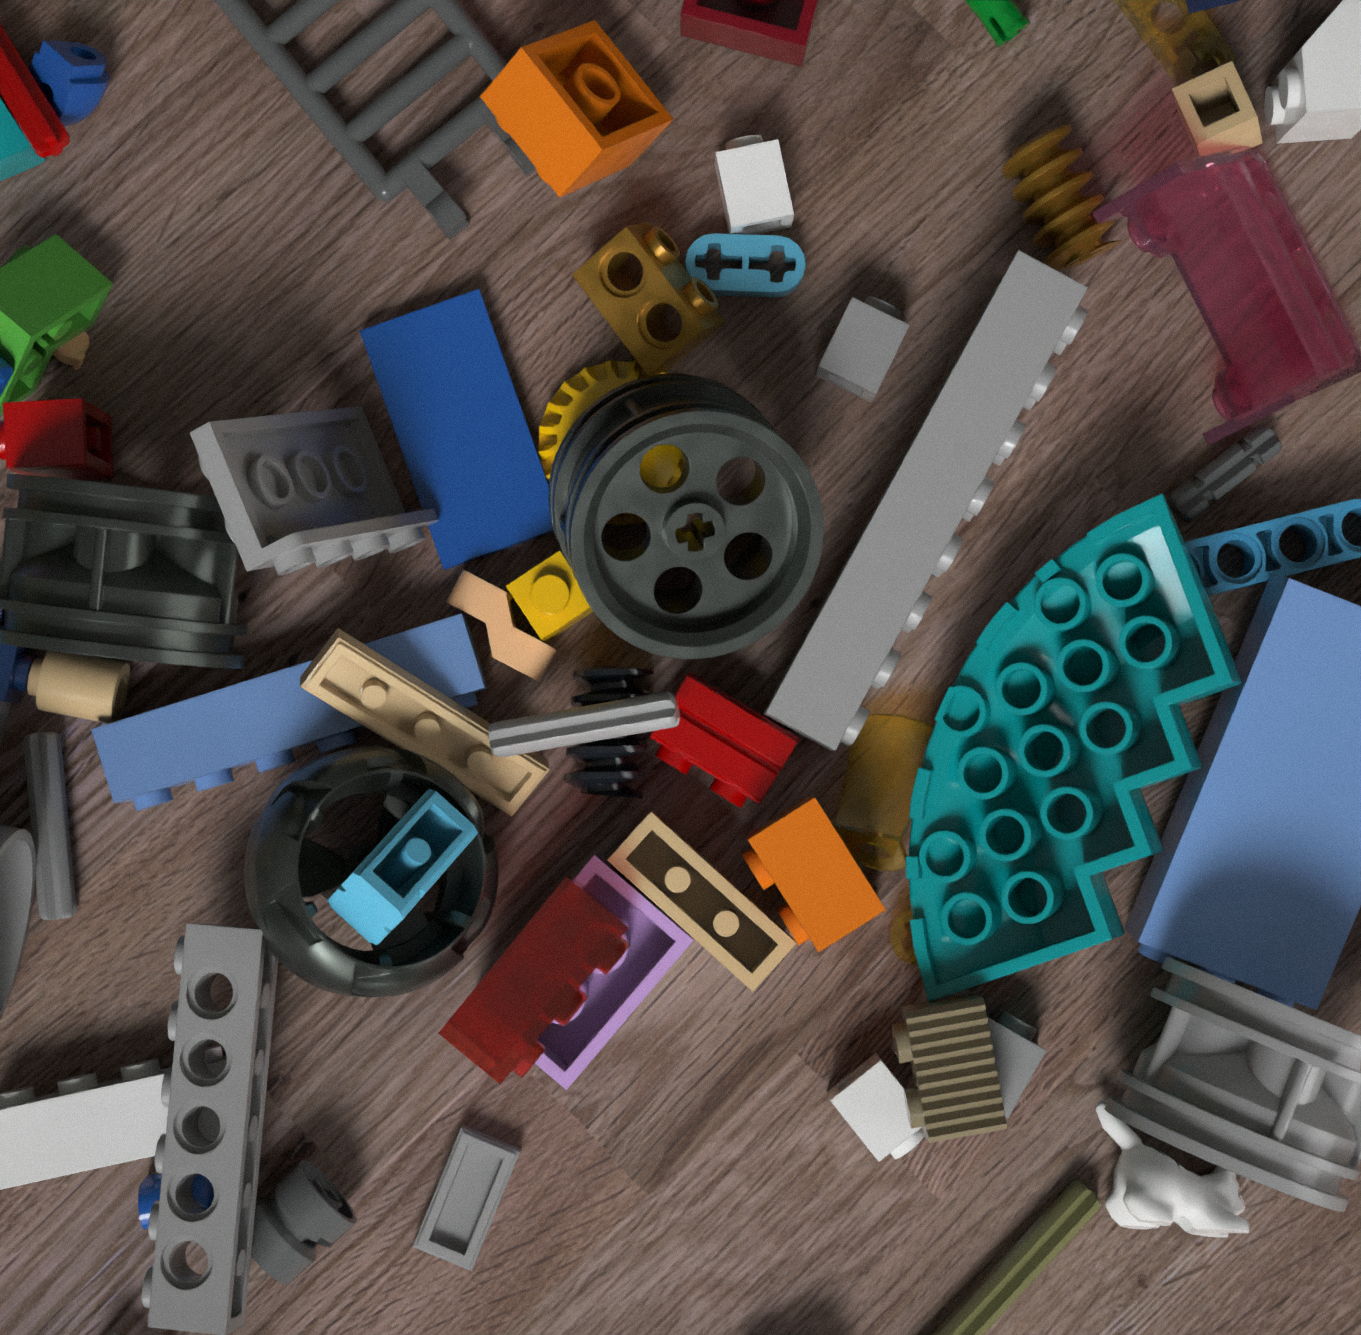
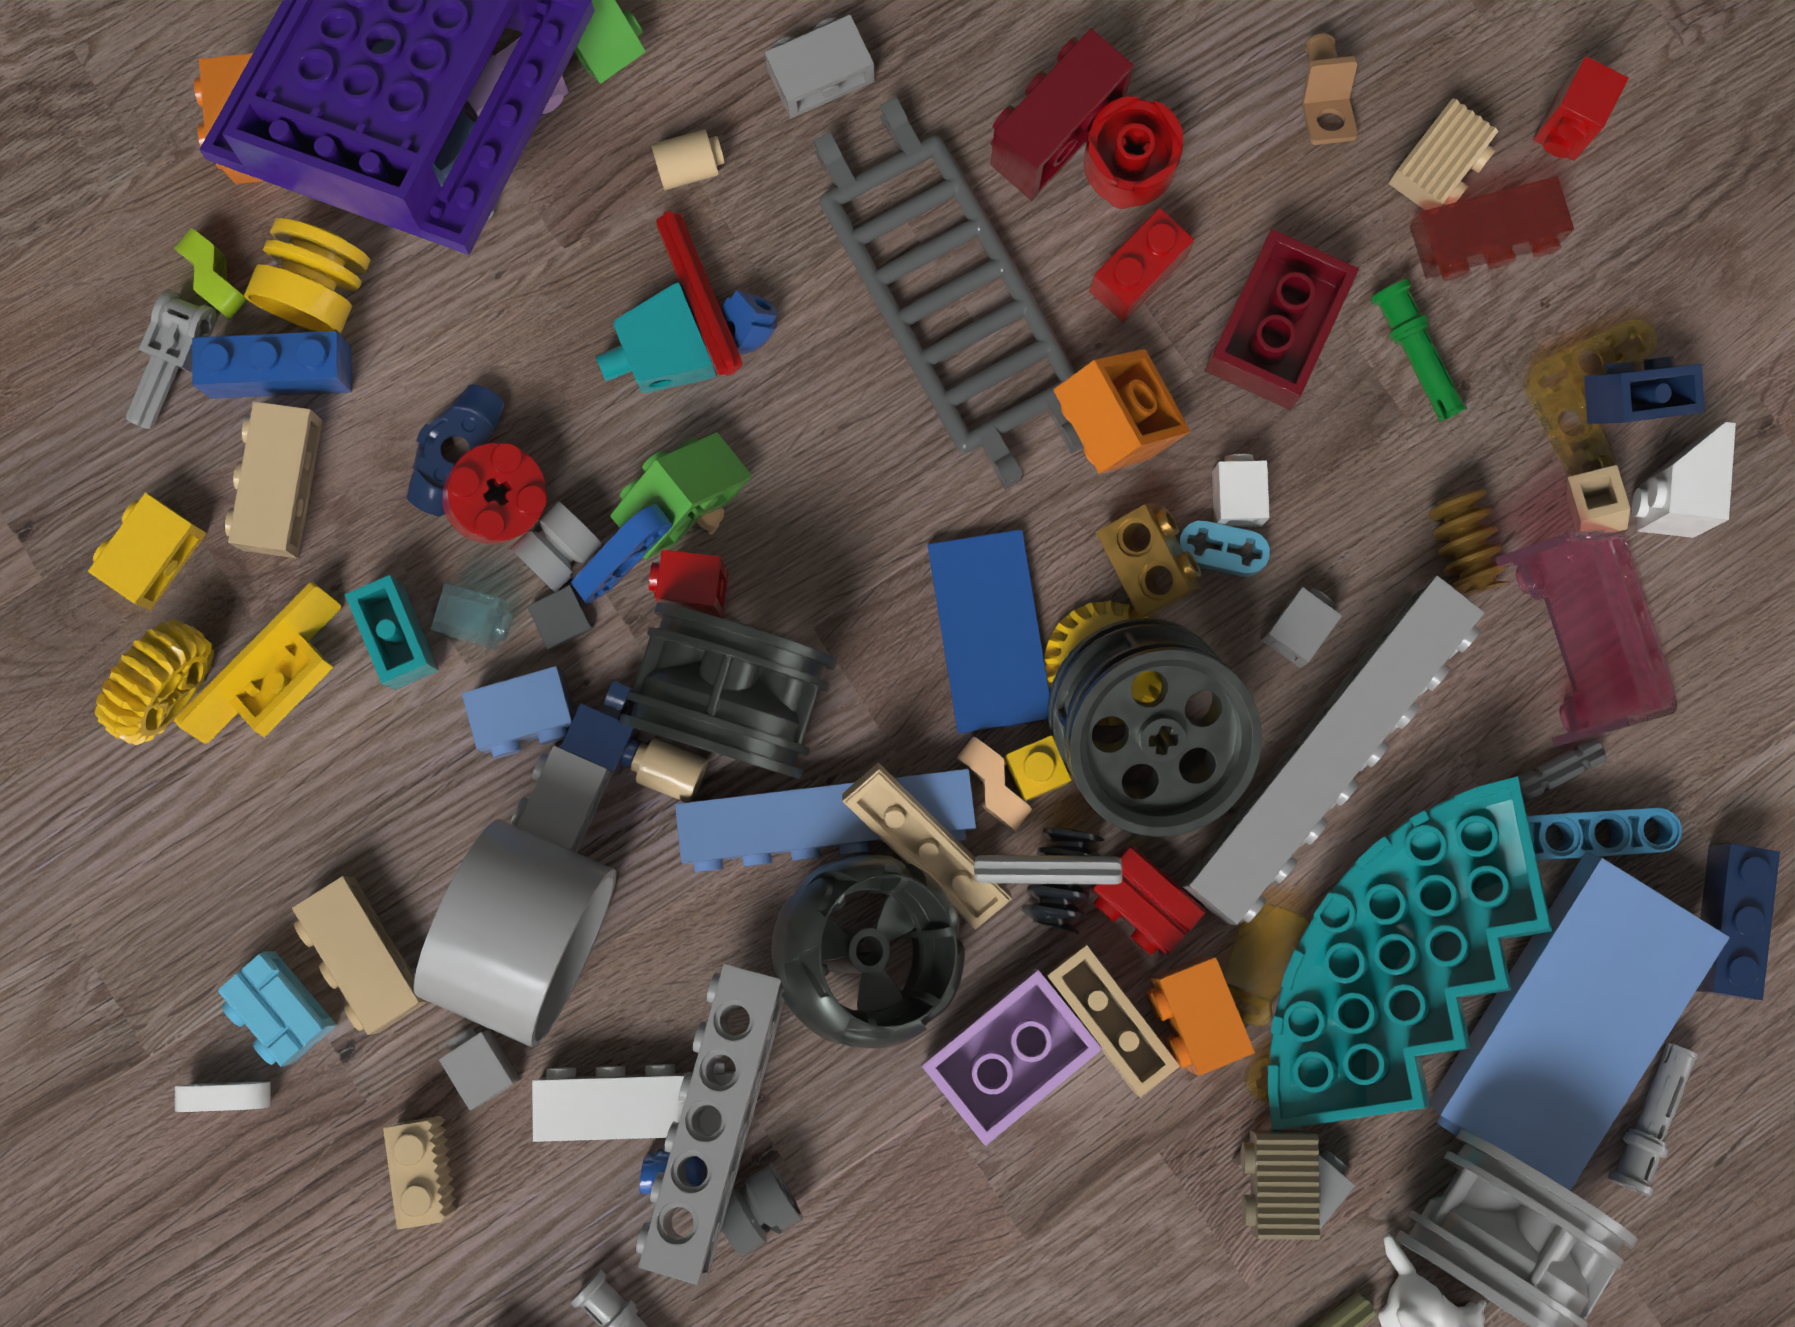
camera: 10 degrees right, 5 degrees down
(49, 825) = (627, 866): light grey axle -> none
(305, 489) = (874, 655): light grey bracket -> none
(402, 867) = (897, 951): medium azure brick -> none
(467, 1197) = (888, 1216): light grey tile -> none
(537, 981) = (981, 1057): clear red brick -> none
(876, 1109) = (1216, 1207): white brick -> none

